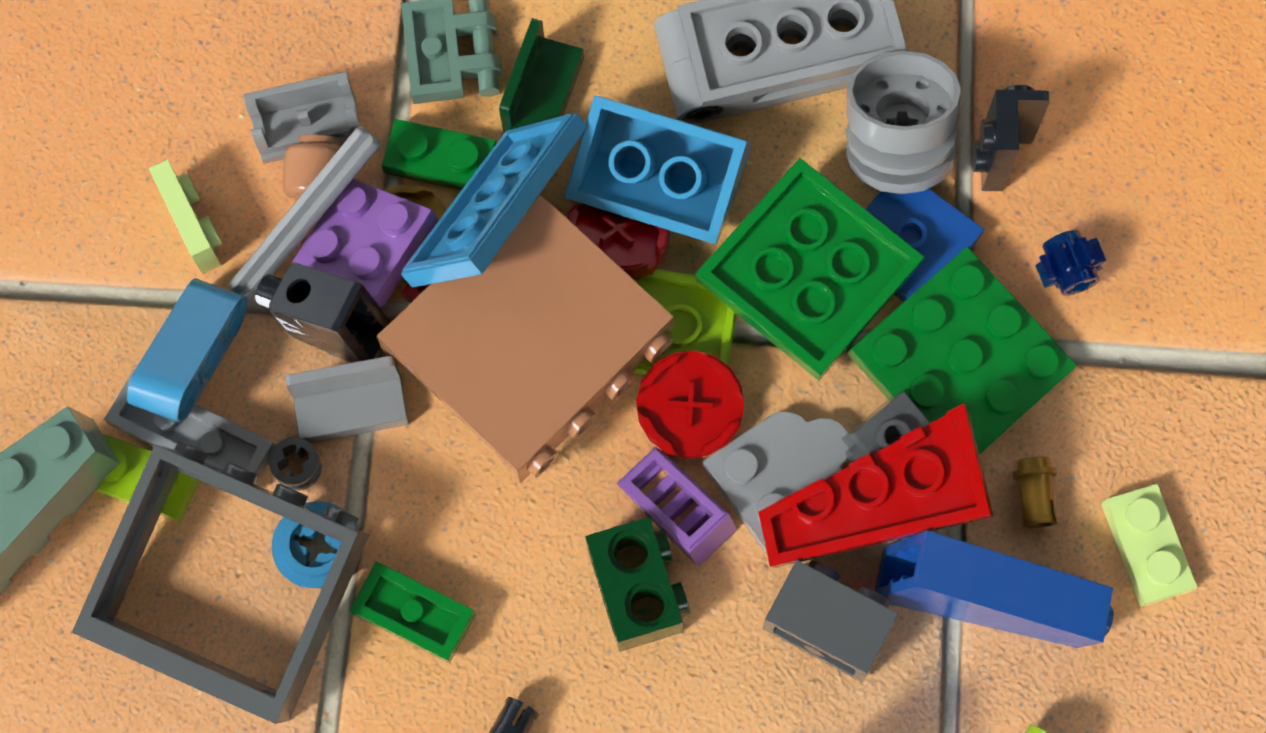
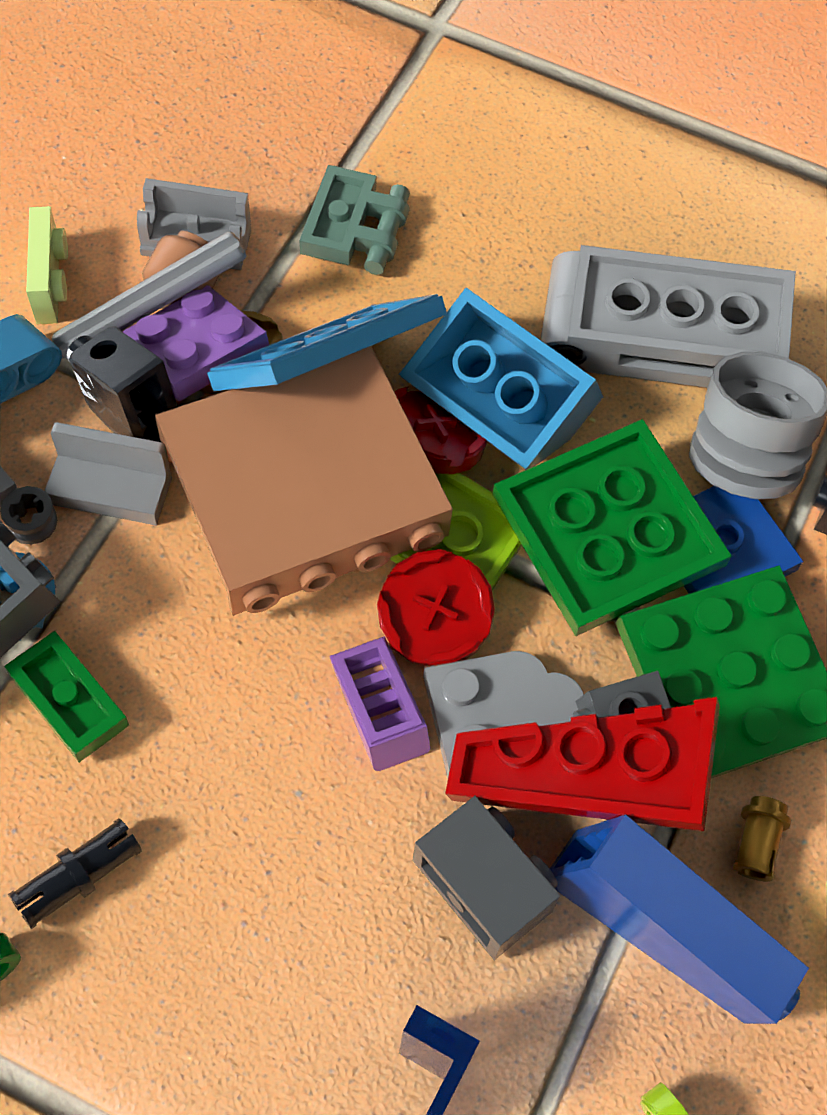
camera: 15 degrees right, 10 degrees down
(434, 154) = (294, 298): green plate -> none
(539, 80) = (423, 267): dark green panel -> none
(625, 586) = (289, 758): dark green brick -> none

